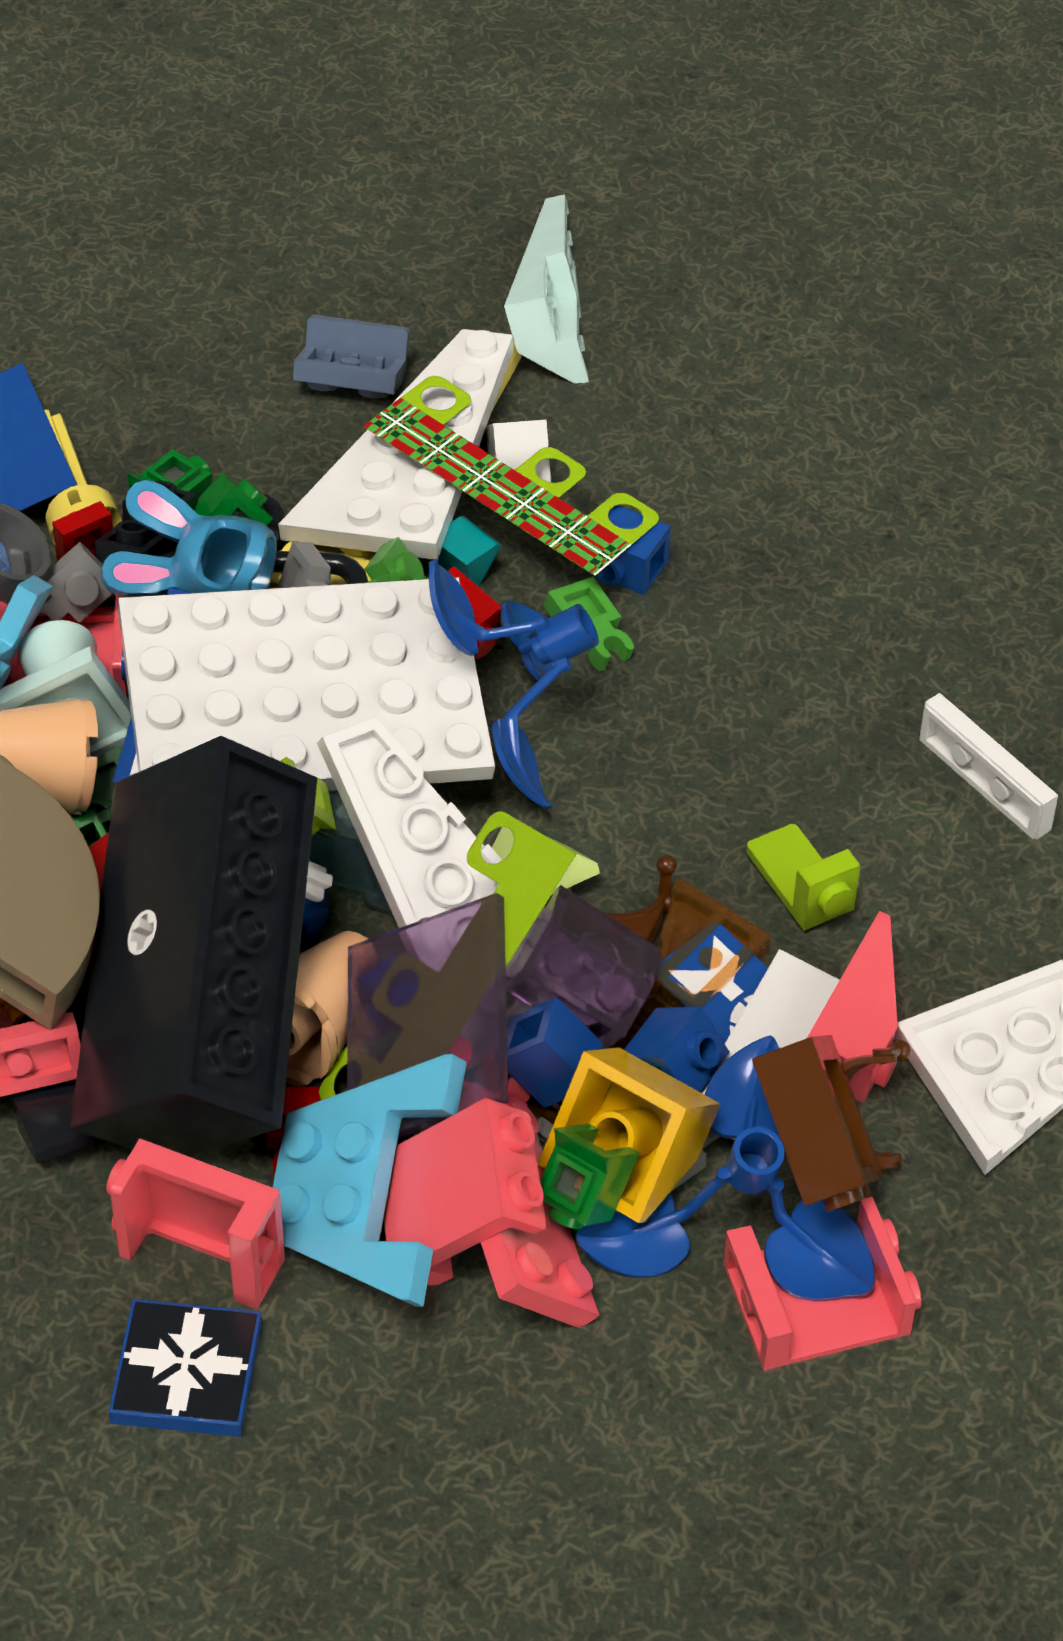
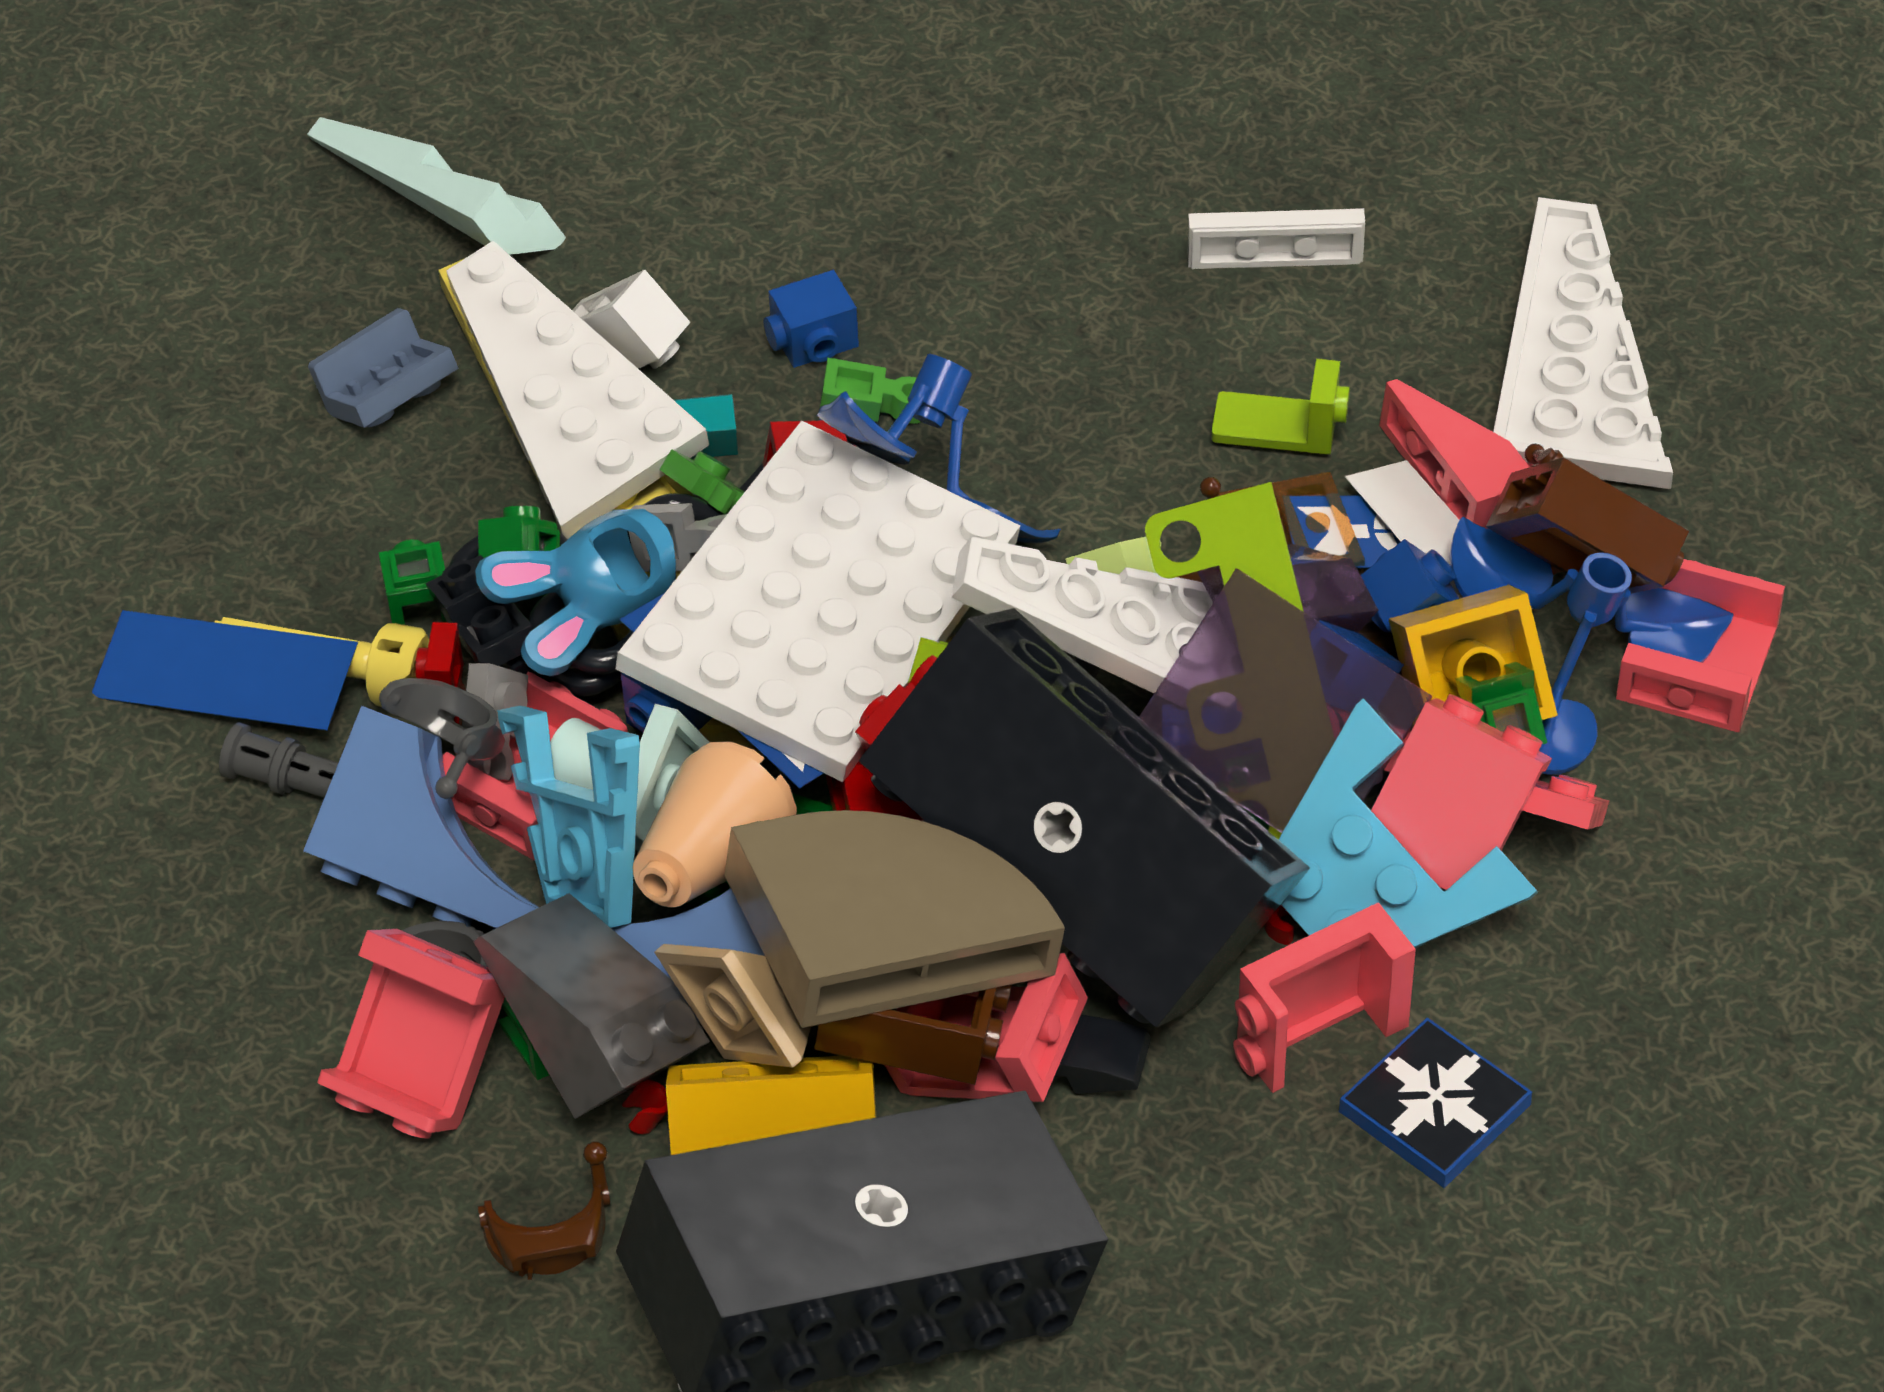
camera: 50 degrees left, 0 degrees up
(512, 493) = (688, 346): piece -> none

